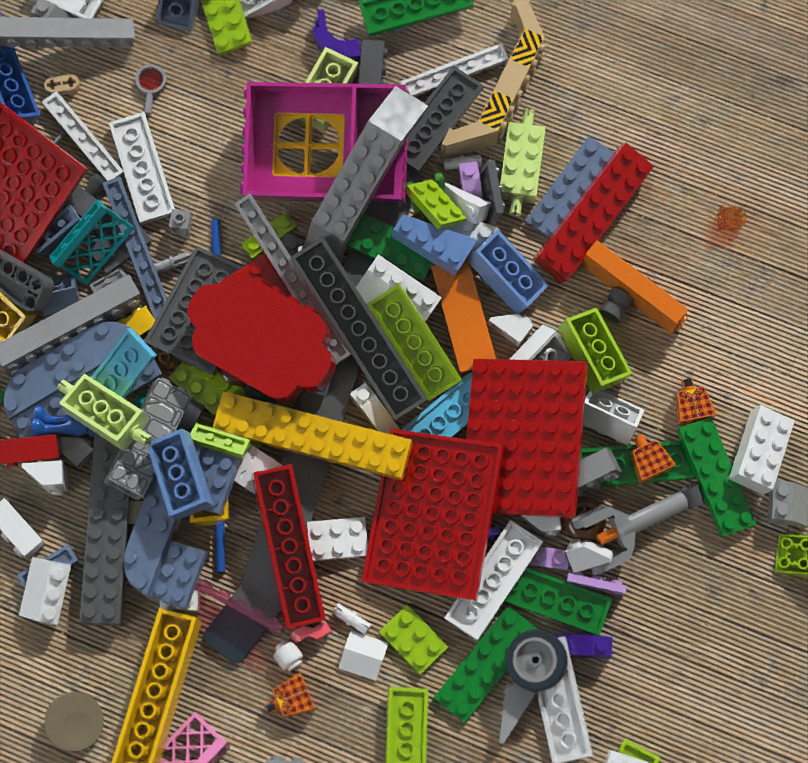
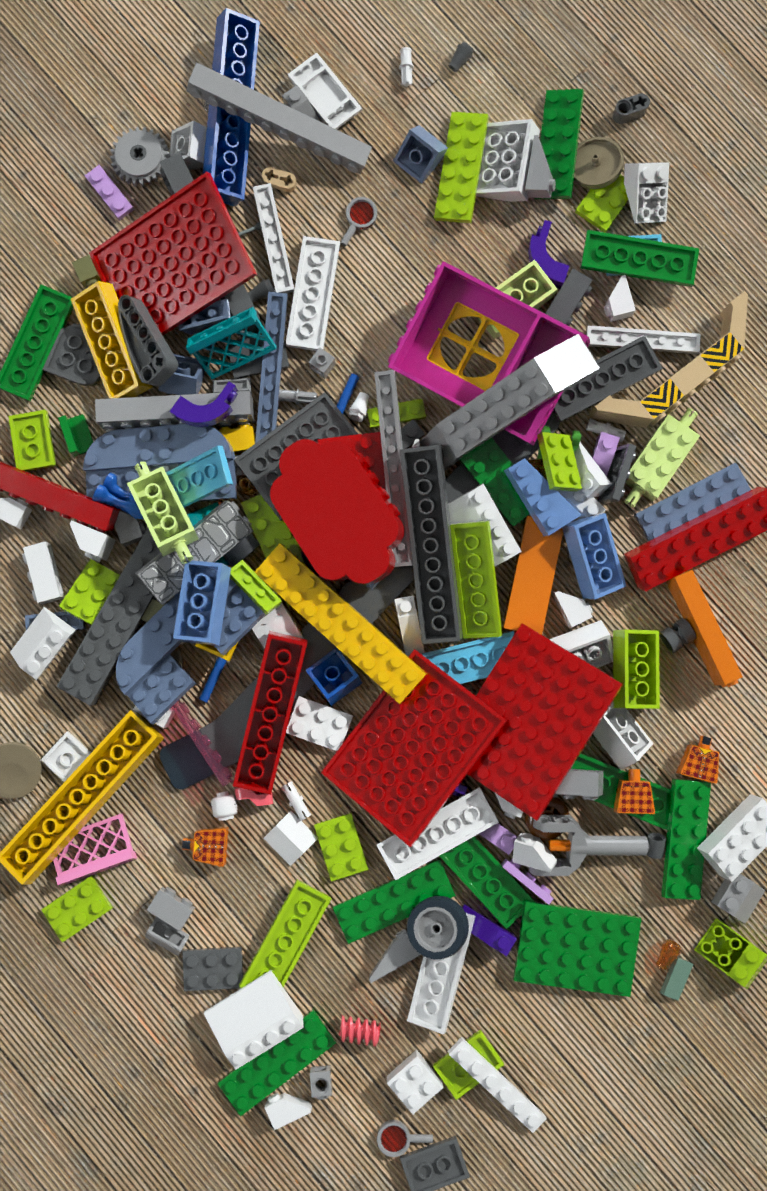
camera: 30 degrees right, 10 degrees up
(68, 524) = (89, 592): none -> lime plate
(100, 312) = (207, 414): none -> dark purple arch
(117, 685) = (65, 756): none -> white tile
(233, 246) = (359, 408): none -> white cone
(330, 489) = (334, 676): none -> blue slope
(418, 49) = (620, 302): none -> white slope
(671, 621) = (577, 948): none -> green plate
(753, 585) = (668, 953): none -> clear orange cone
(772, 603) = (676, 978): none -> sand green slope

